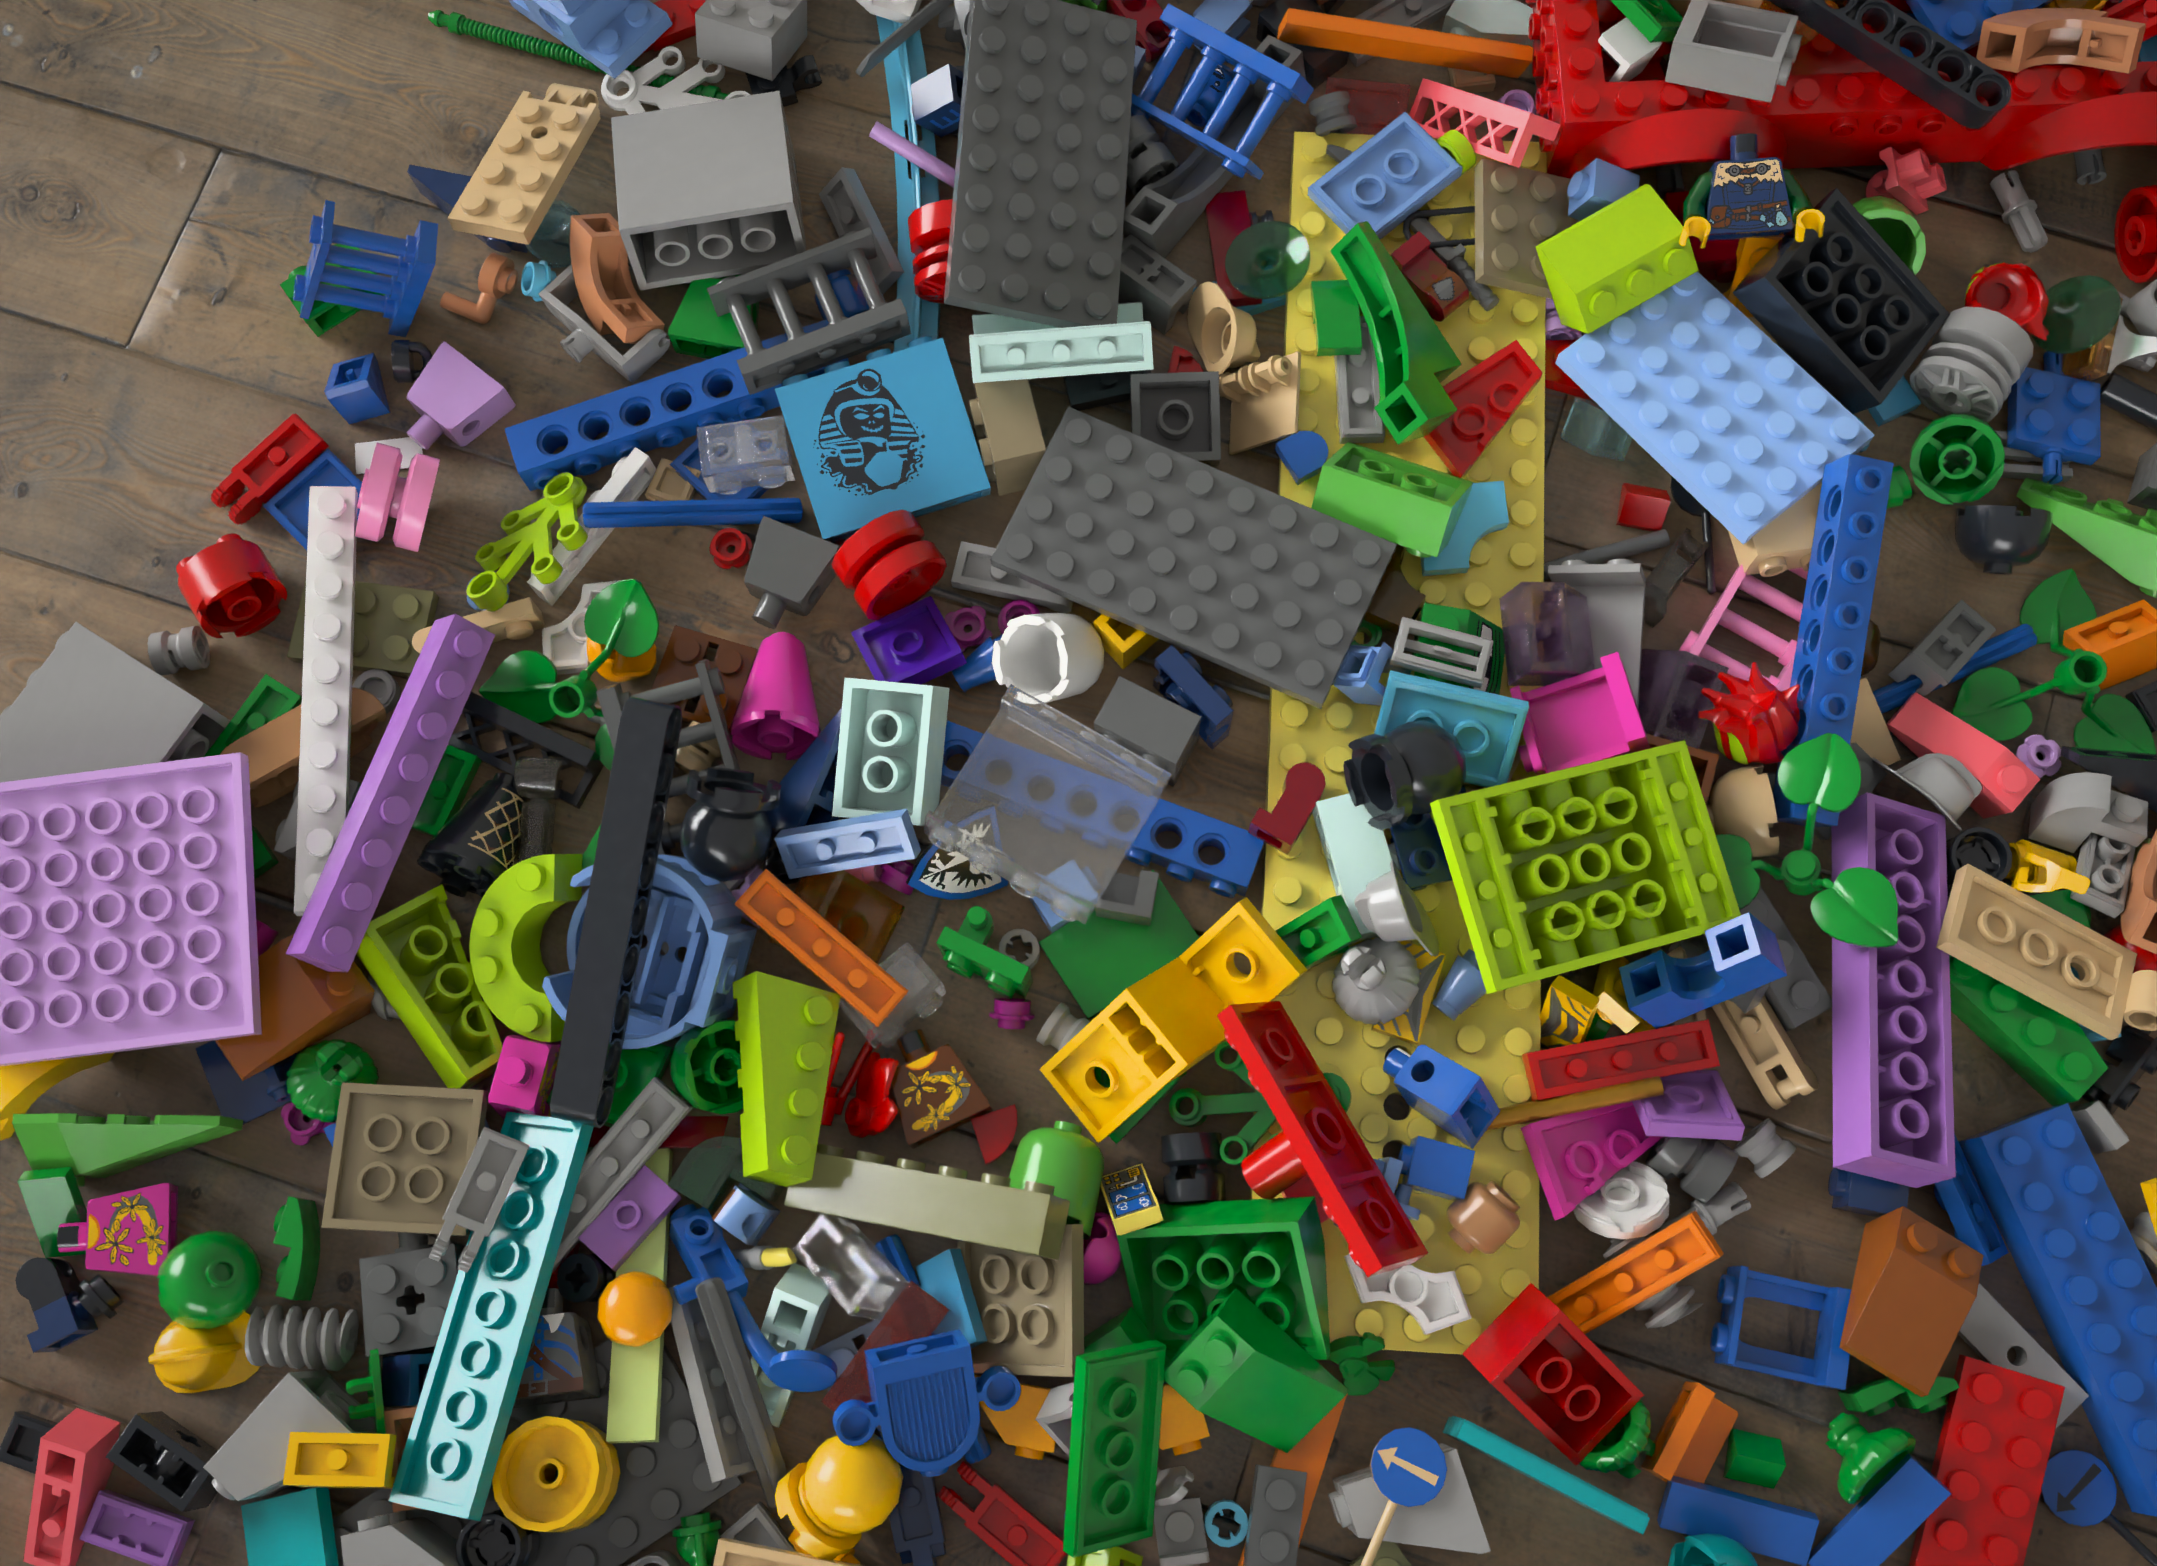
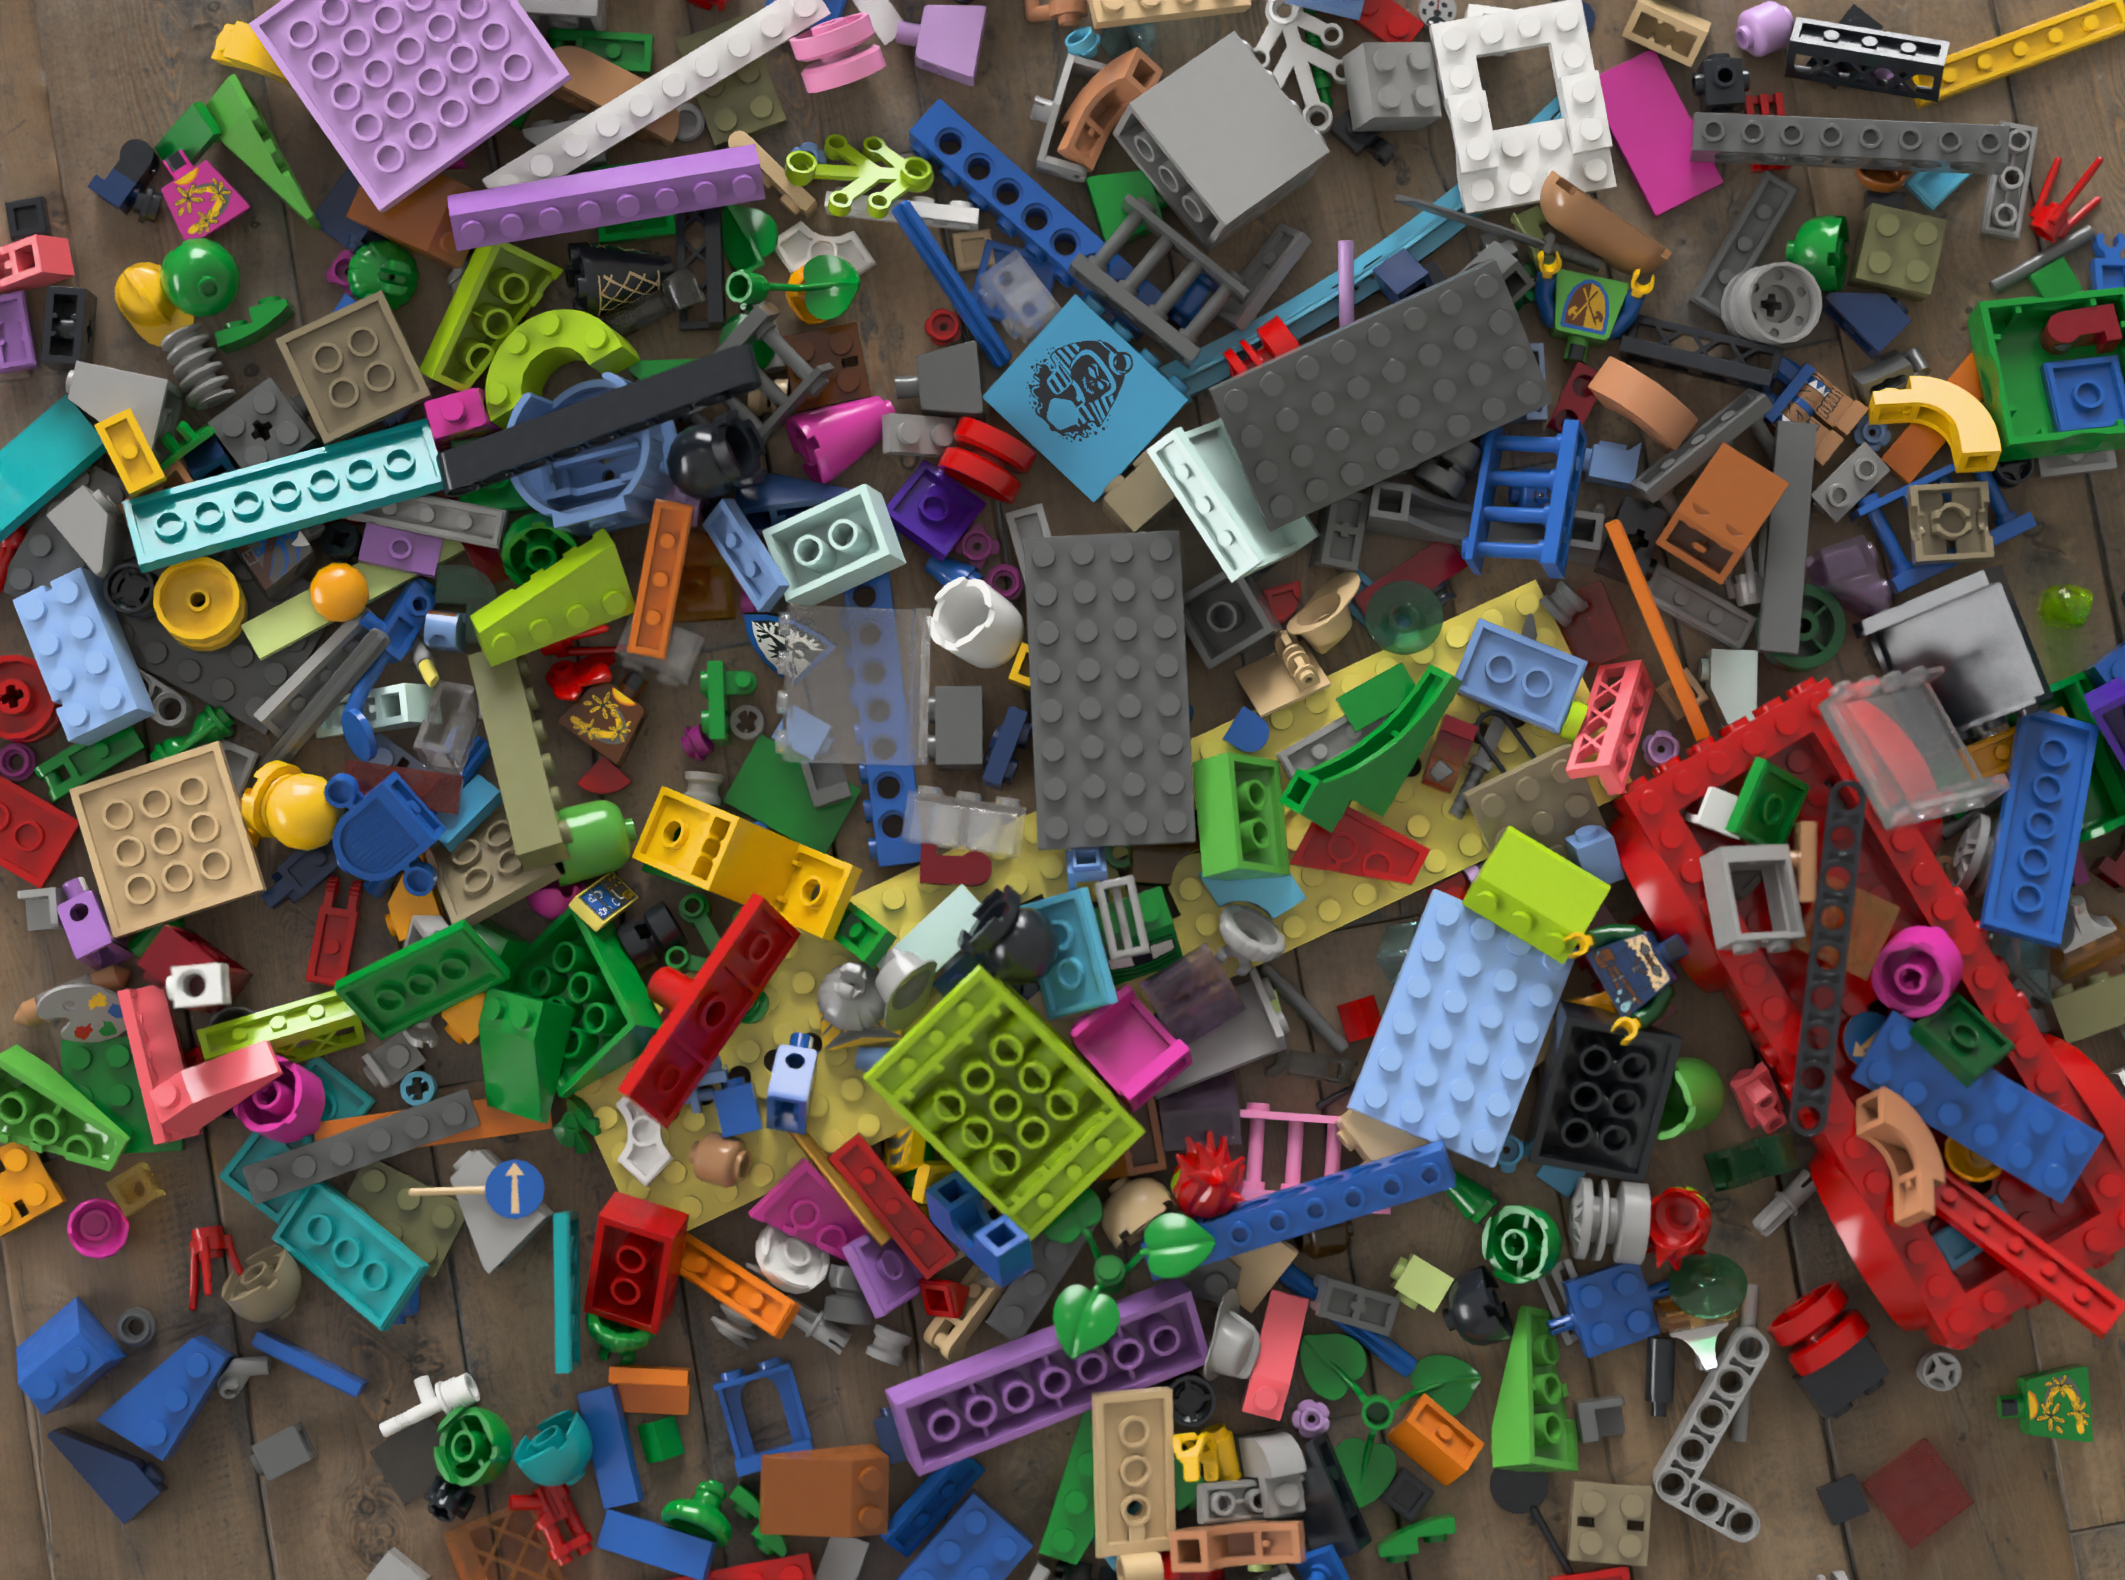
camera: 55 degrees right, 10 degrees up
(480, 1193) = (356, 438): light grey hinge -> none
(824, 623) = (917, 434): none -> light grey plate
(1254, 764) = (964, 822): none -> clear brick
(1520, 551) = (1248, 937): none -> light grey hair
(1742, 1062) = (943, 1297): none -> red slope
(1946, 578) = (1419, 1282): none -> yellowish green brick
(1963, 213) = (1751, 1160): none -> clear green brick

